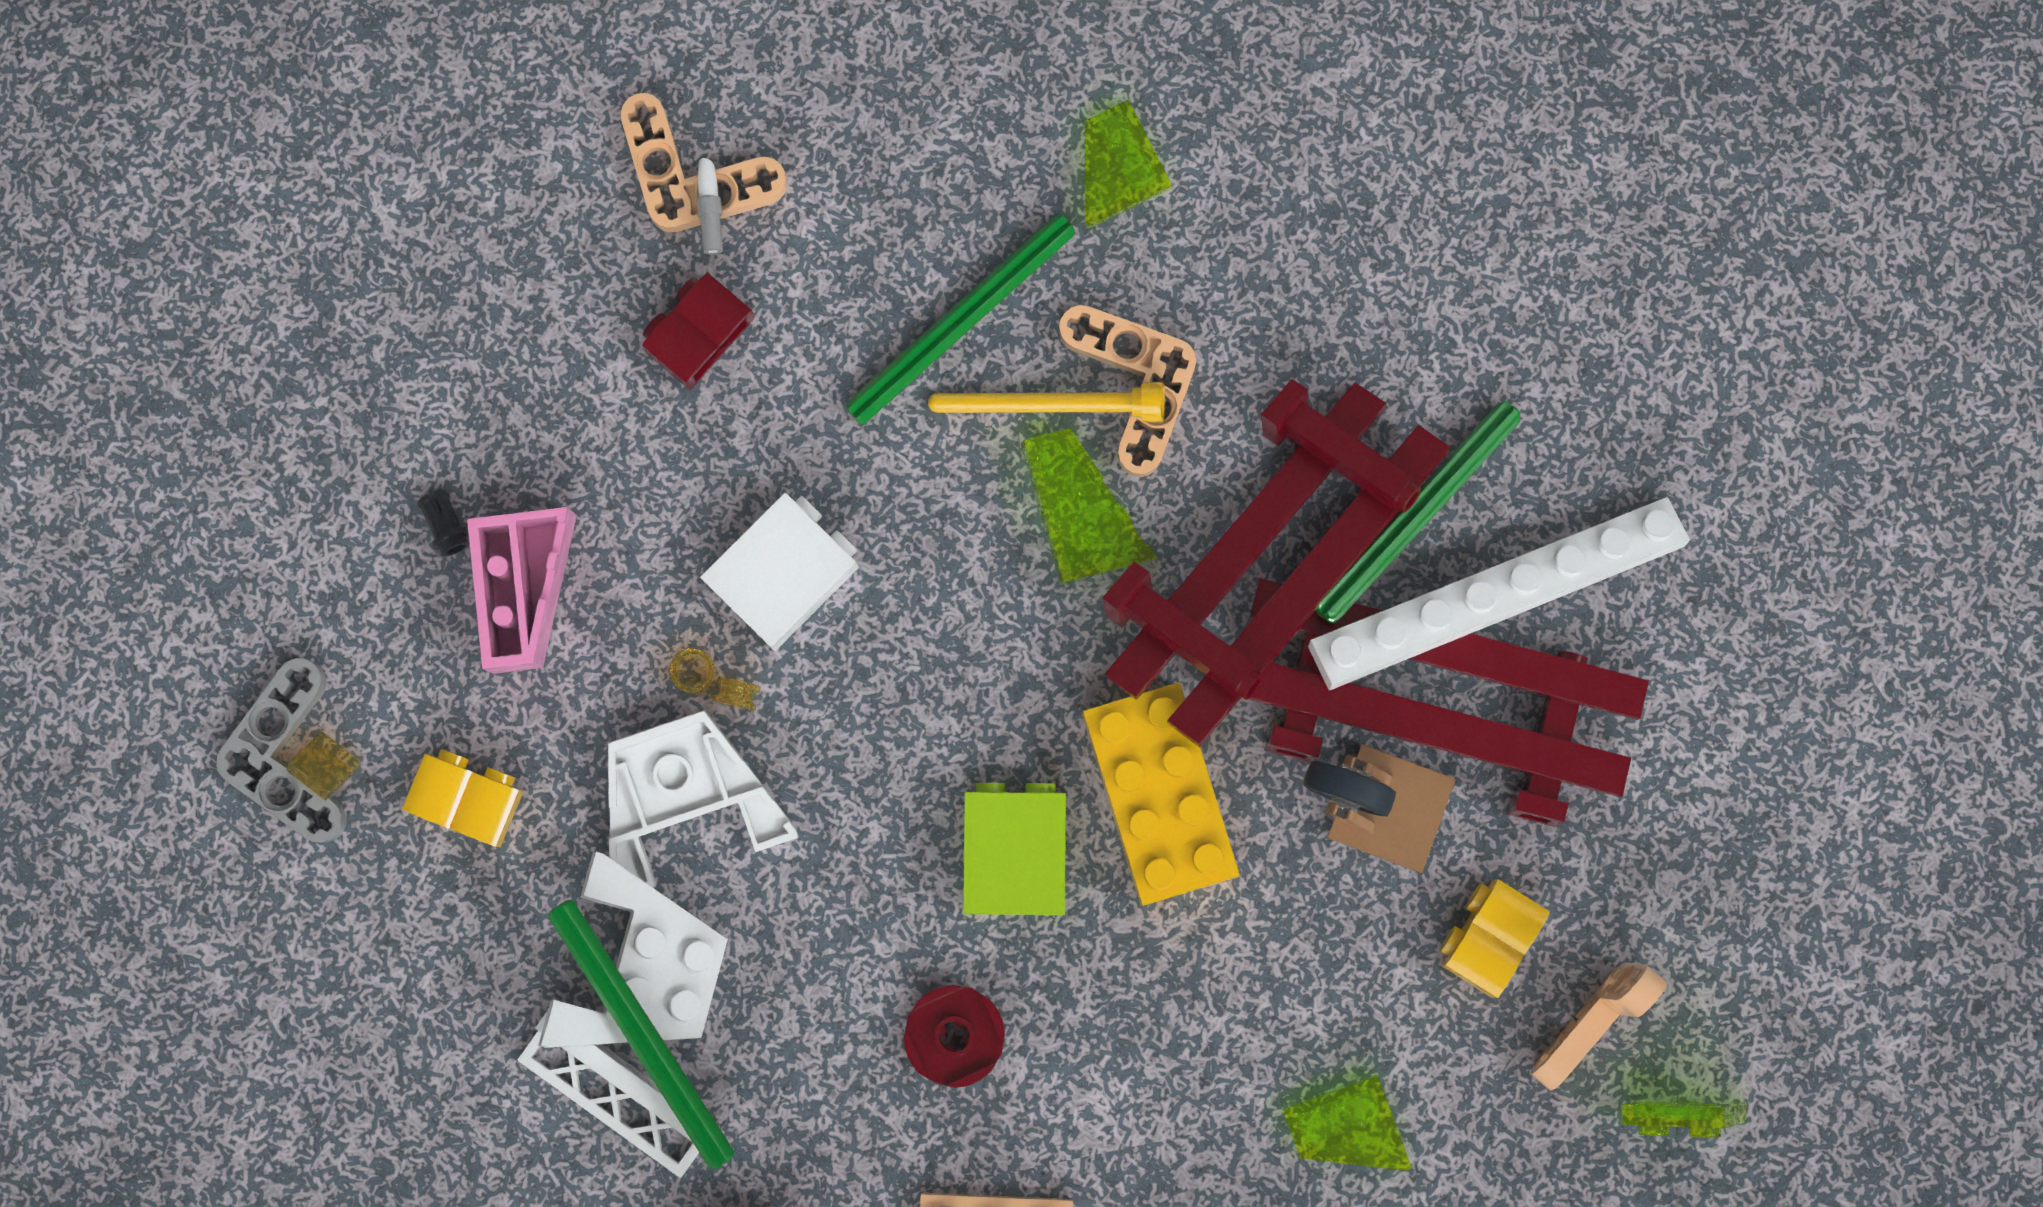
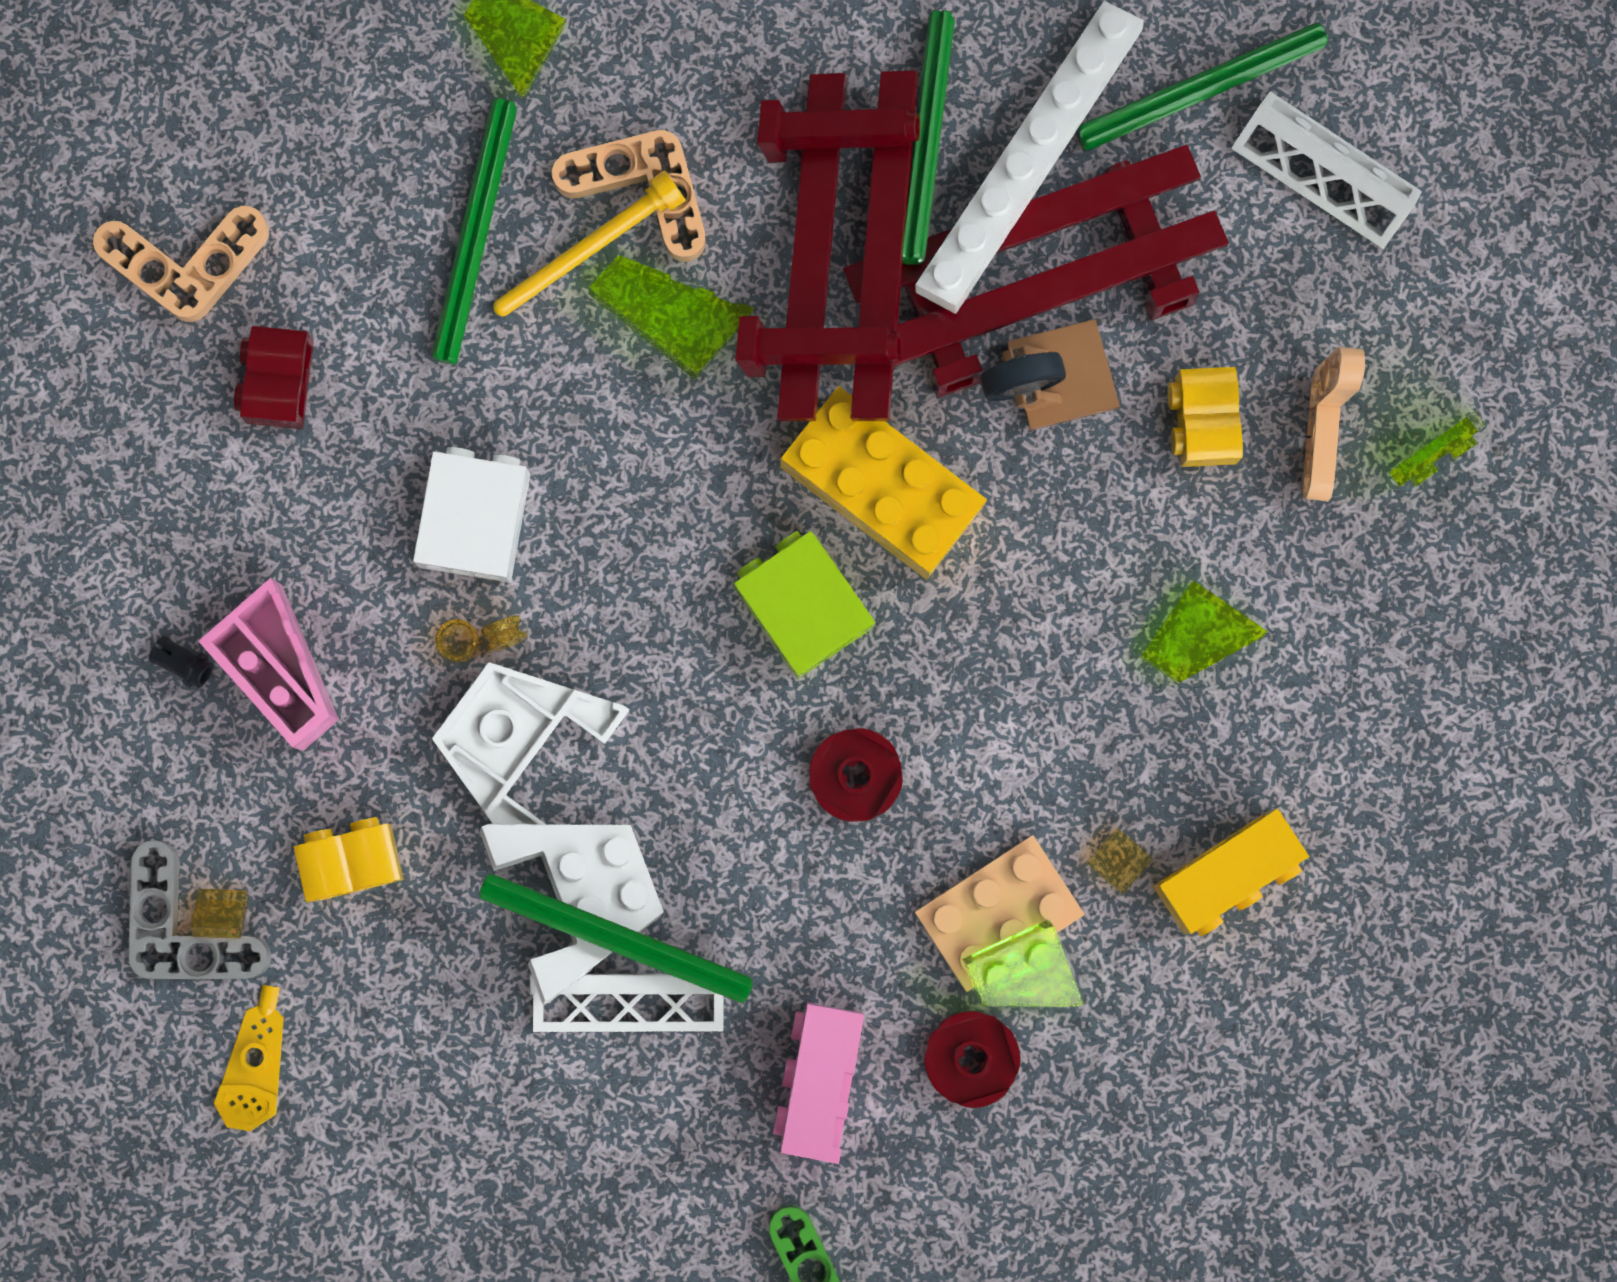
camera: 45 degrees left, 0 degrees up
(250, 929) = (251, 1080): none -> yellow piece
(709, 207) = (218, 276): light grey piece -> none
(1703, 635) = (1201, 86): none -> green axle
(1780, 787) = (1335, 155): none -> white fence

